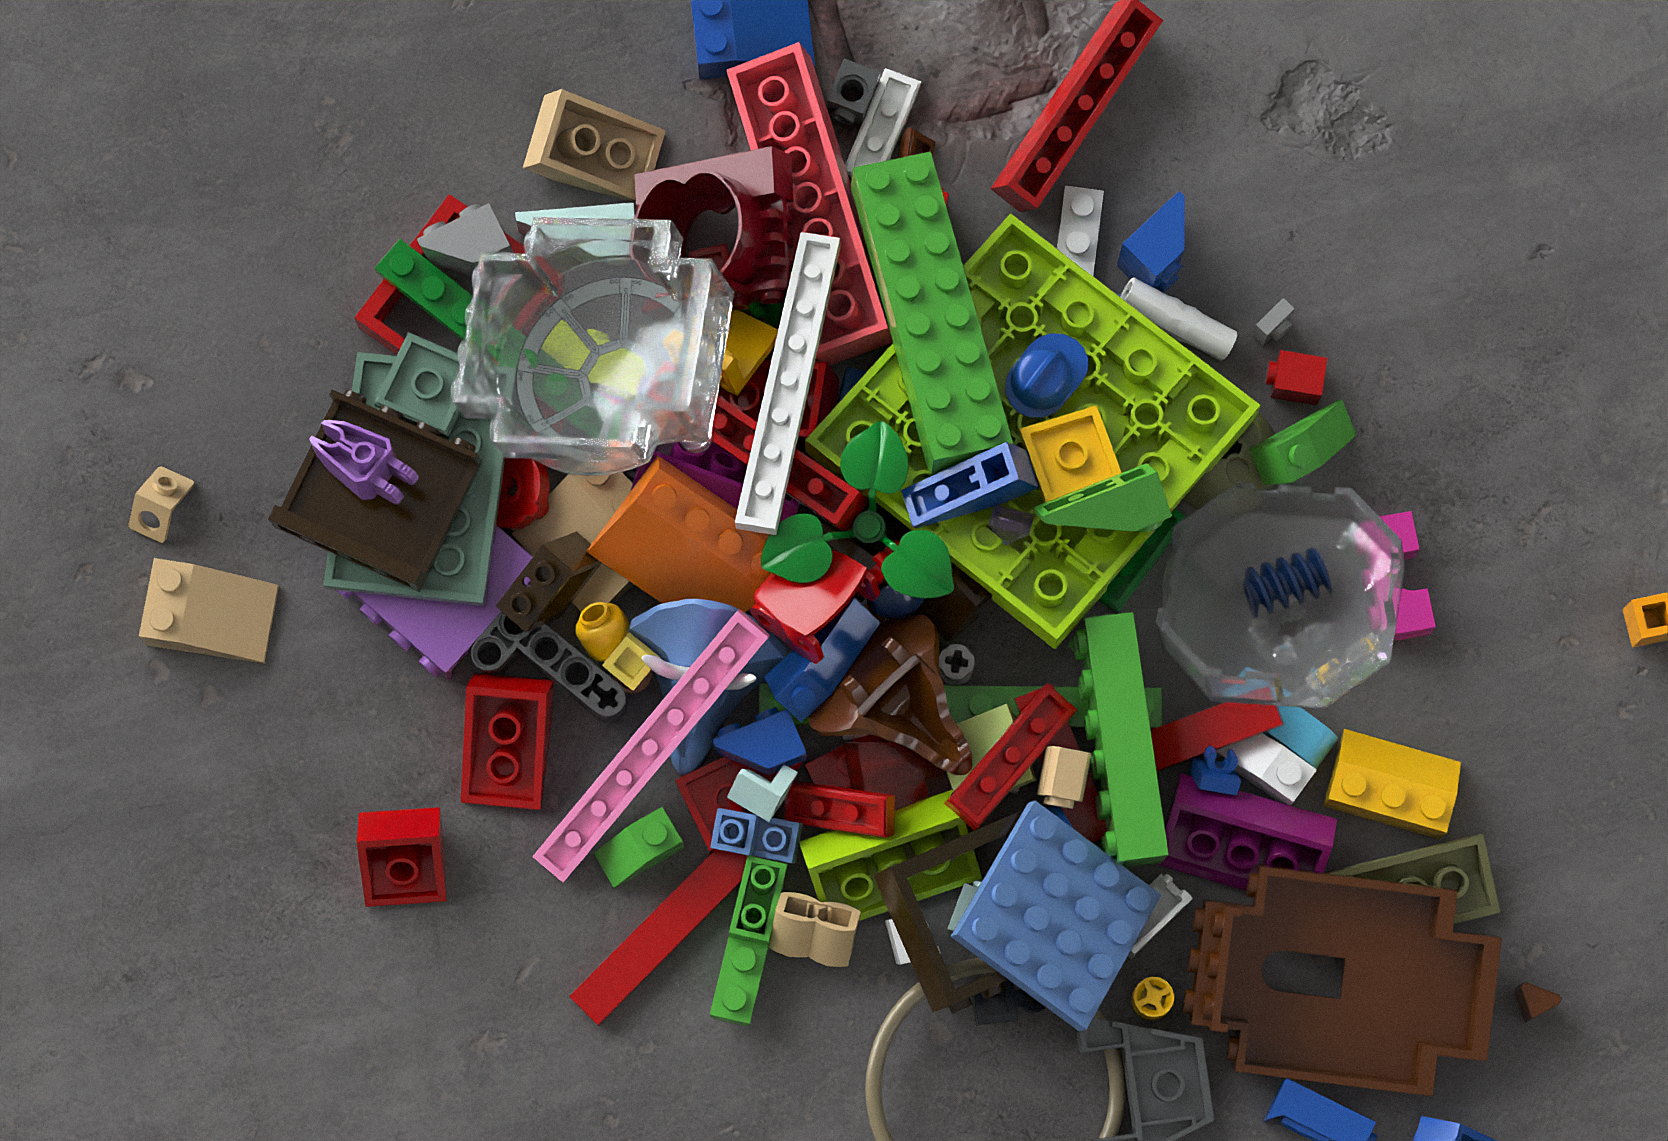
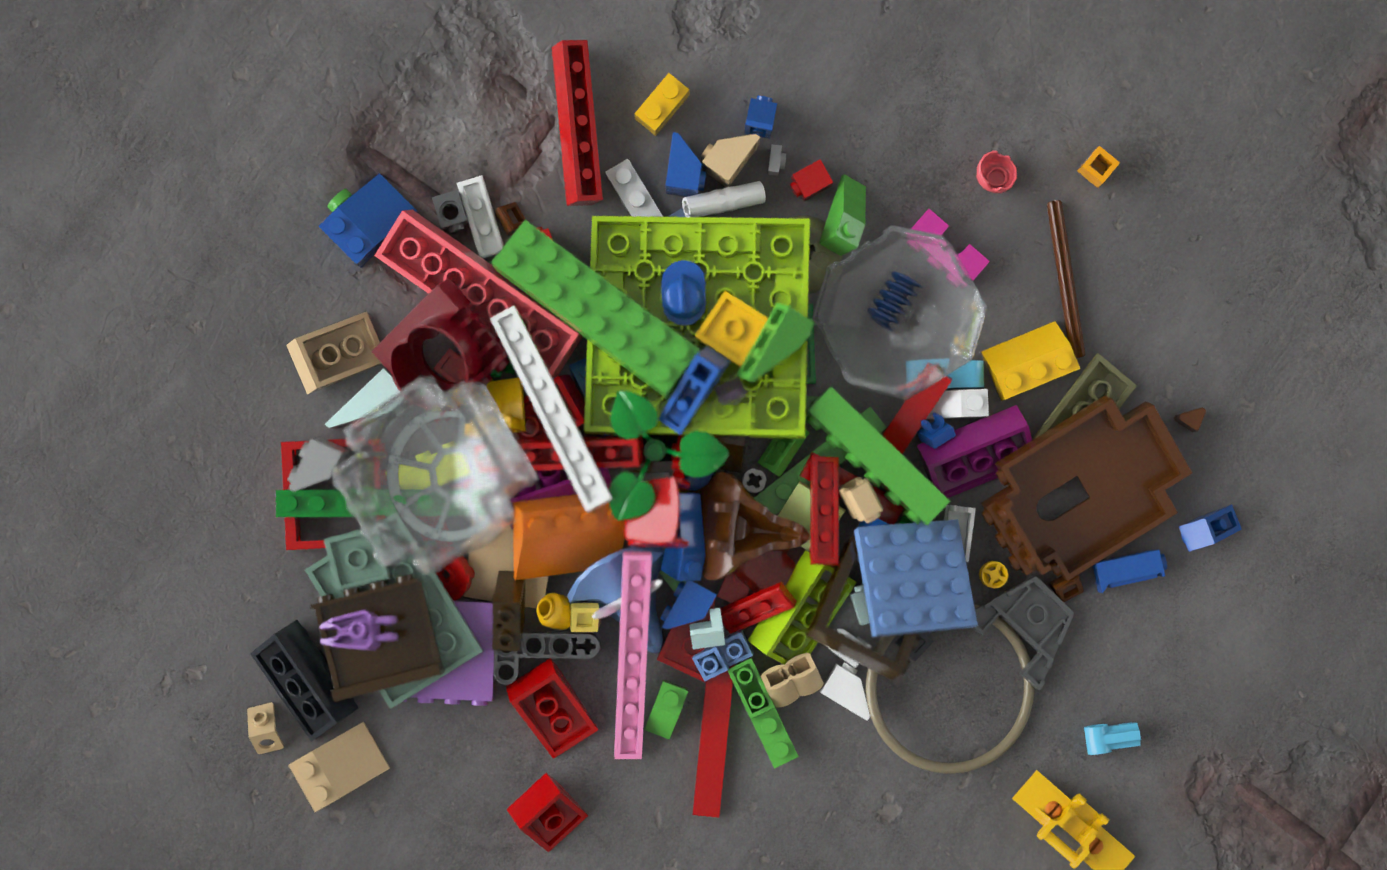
camera: 35 degrees left, 10 degrees up
(248, 475) = (302, 679): none -> black slope
(869, 993) = (846, 689): none -> white slope
(1017, 656) = (780, 453): none -> bright green plate
(1192, 159) = (662, 104): none -> yellow brick
(1223, 274) = (728, 157): none -> tan slope
(1230, 1086) = (1066, 589): none -> reddish brown slope
(1294, 261) = (760, 117): none -> blue slope
(1511, 722) = (1065, 277): none -> reddish brown axle
(1524, 534) = (996, 172): none -> coral hair

